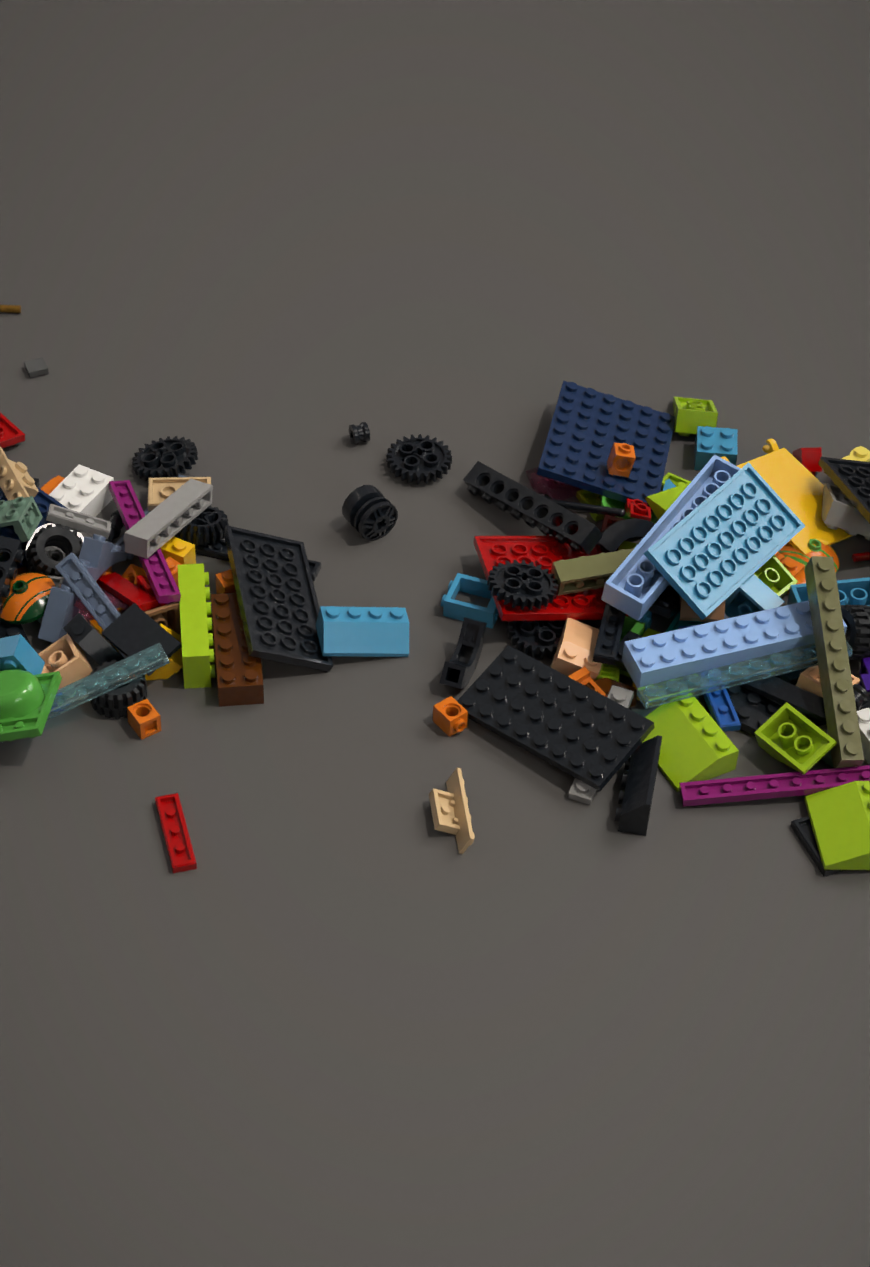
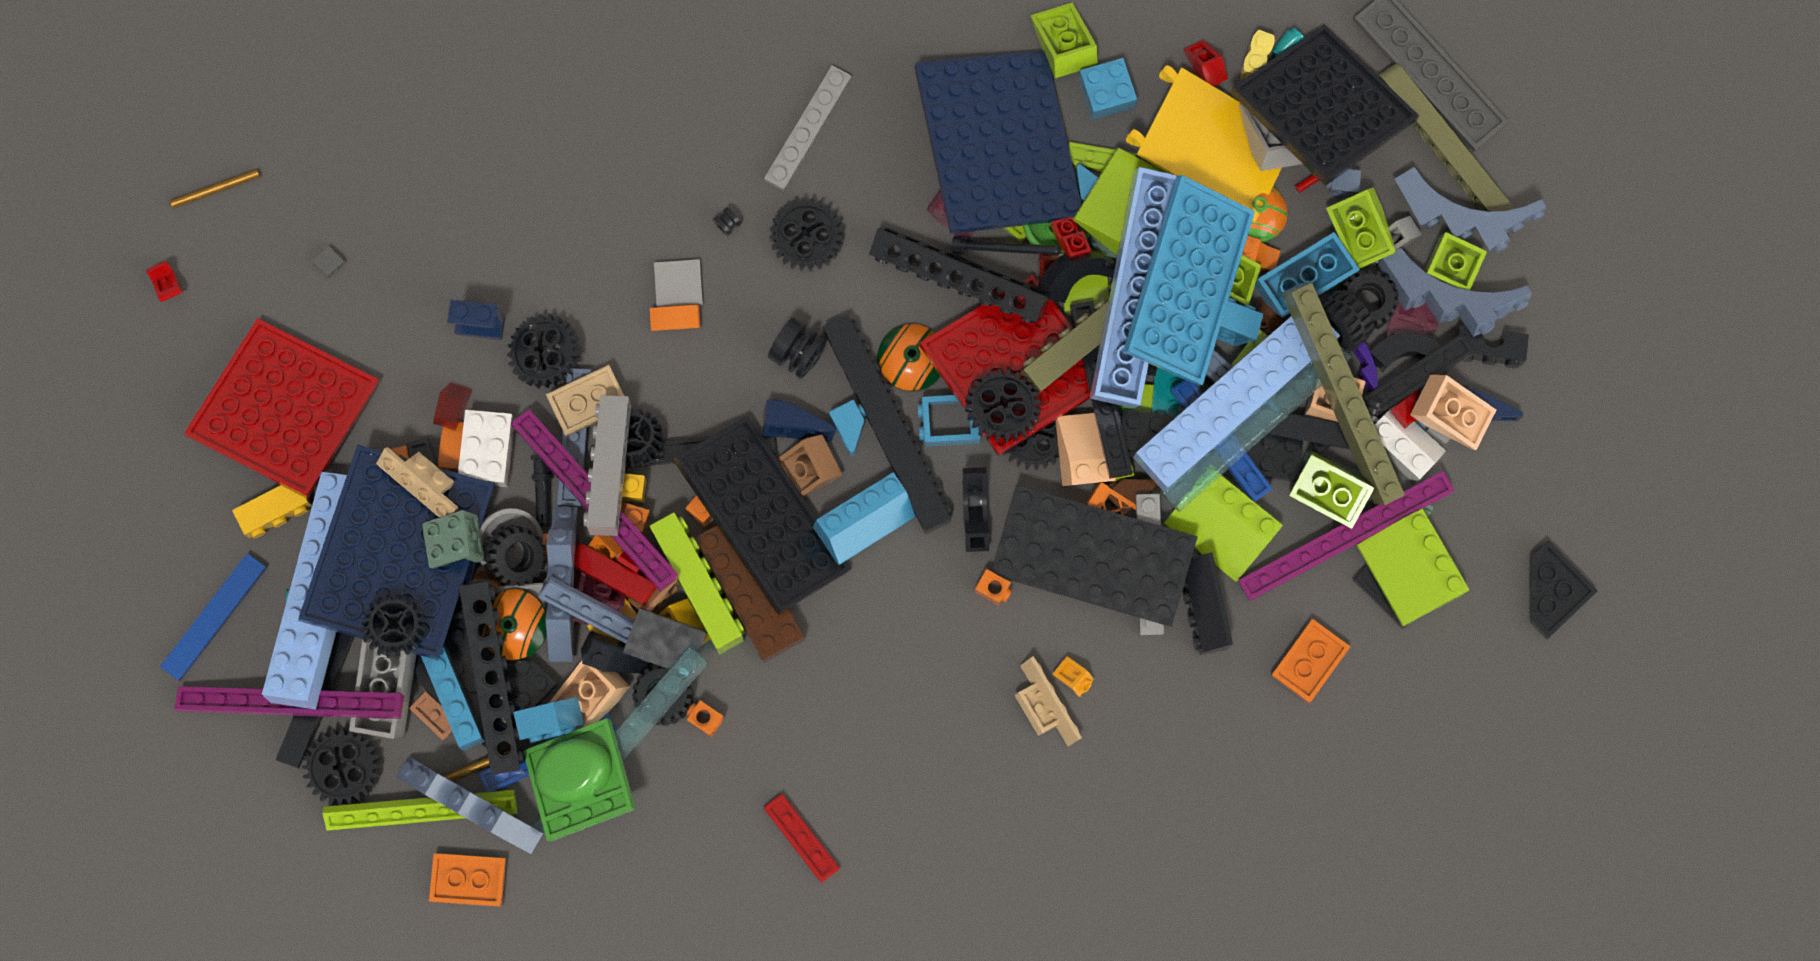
camera: 25 degrees left, 35 degrees up
(66, 463) = (451, 406): none -> clear red slope
(78, 520) = (512, 498): light grey tile -> none
(123, 429) = (476, 319): none -> dark blue window
(284, 472) = (674, 317): none -> orange slope
(297, 458) = (678, 283): none -> light grey tile
(338, 586) = (810, 465): none -> medium nougat slope
(341, 560) = (791, 421): none -> dark blue slope
(386, 576) = (849, 424): none -> dark azure slope
(419, 589) = (886, 423): none -> black brick
(456, 406) = (807, 128): none -> light grey plate
(457, 556) = (900, 369): none -> orange dish
(493, 802) = (1073, 676): none -> light orange bracket
(621, 459) = (1030, 179): orange brick -> none
(722, 864) = (1310, 661): none -> orange plate

